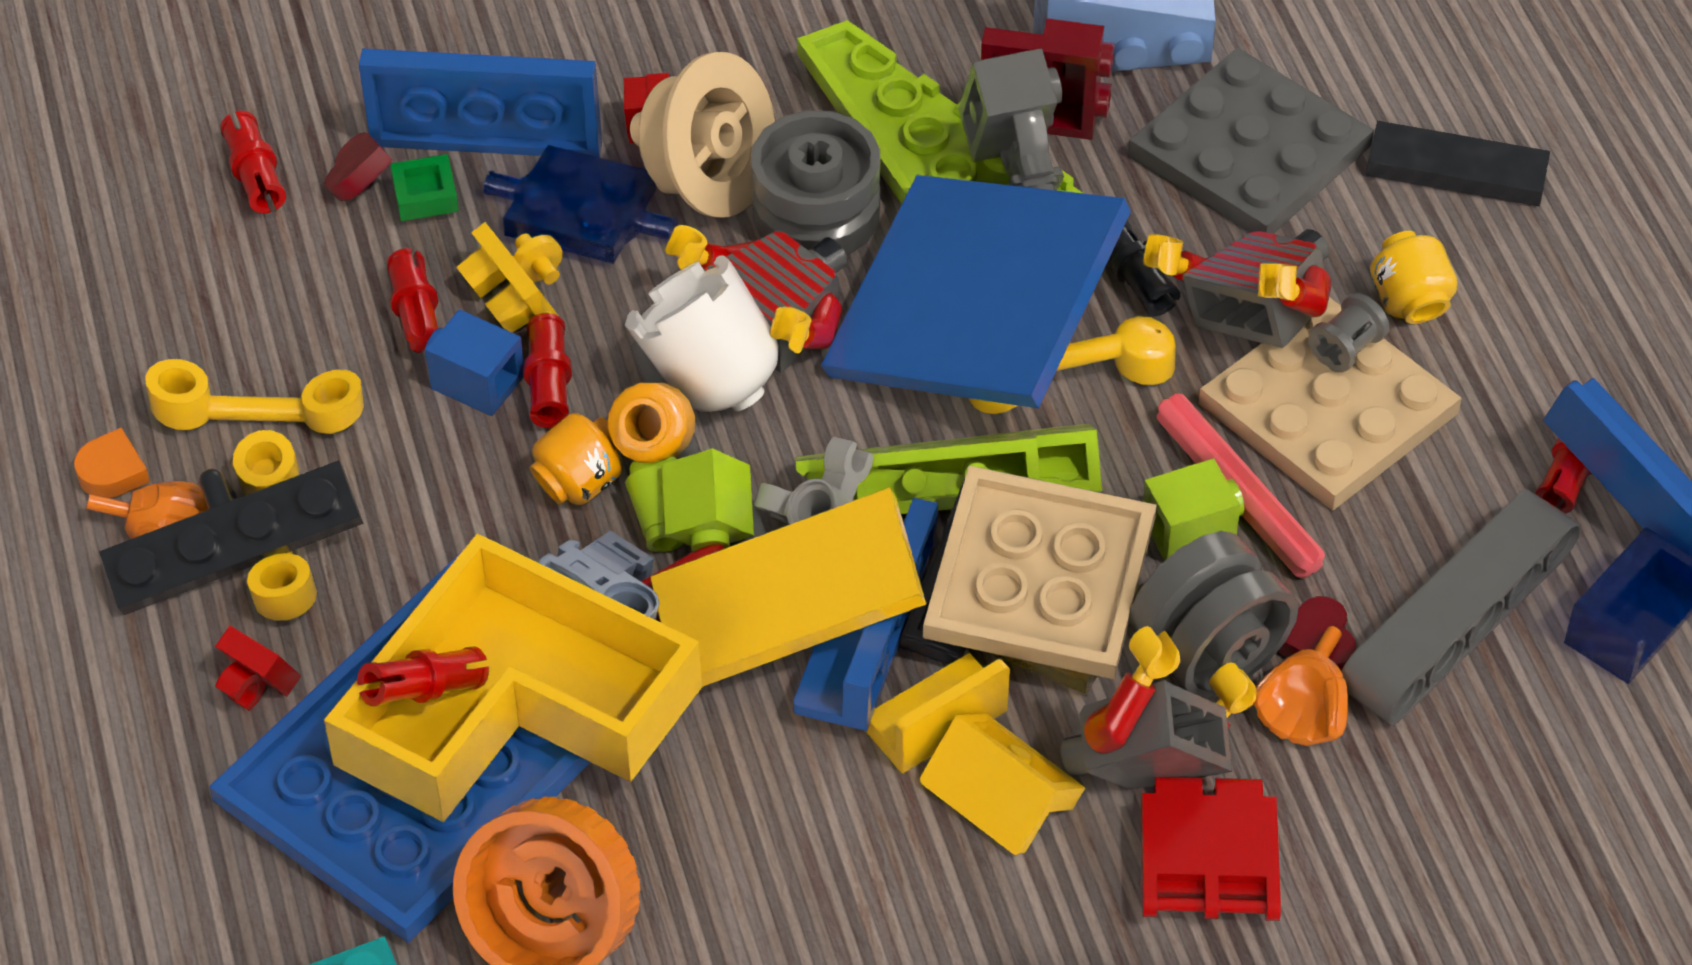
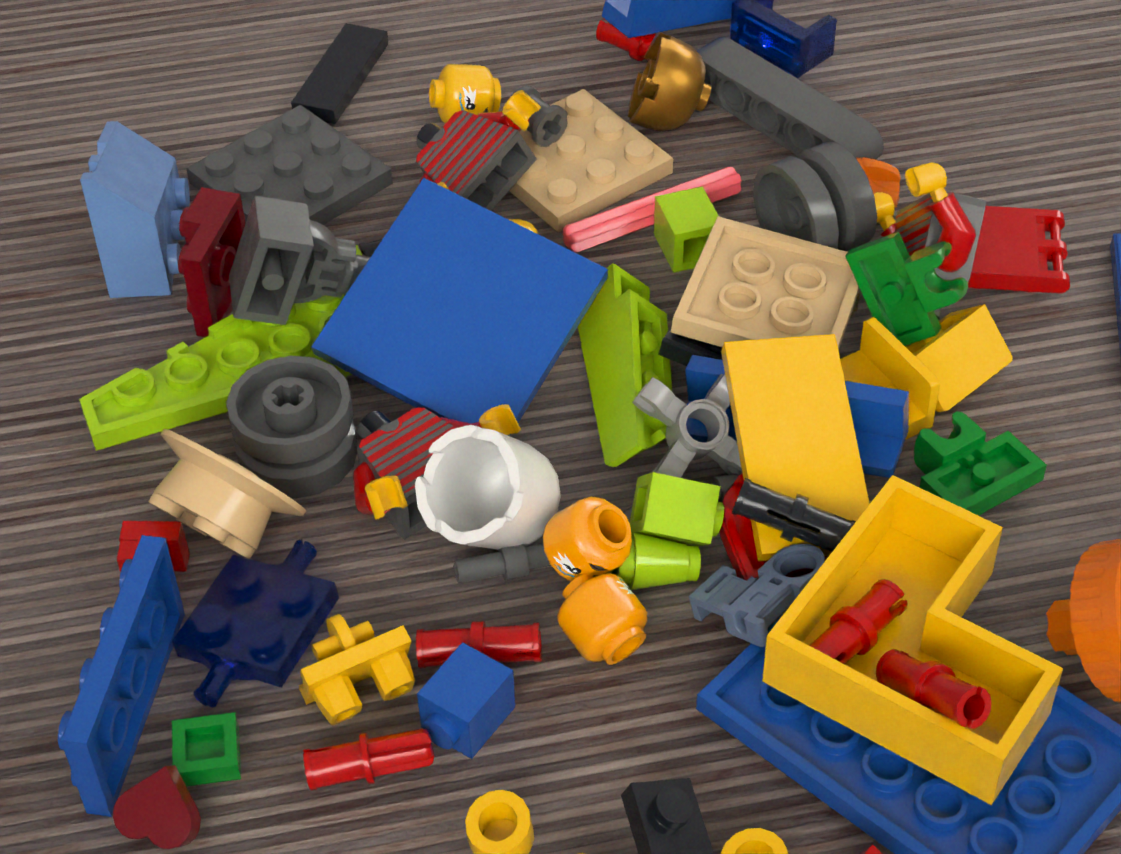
camera: 85 degrees left, 5 degrees down
(518, 630) = (857, 627): none -> red pin
(679, 581) = (791, 516): none -> black pin
(811, 795) = (972, 470): none -> green plate
(1058, 693) = (903, 287): none -> green plate
(1460, 471) = (669, 85): none -> pearl gold cylinder

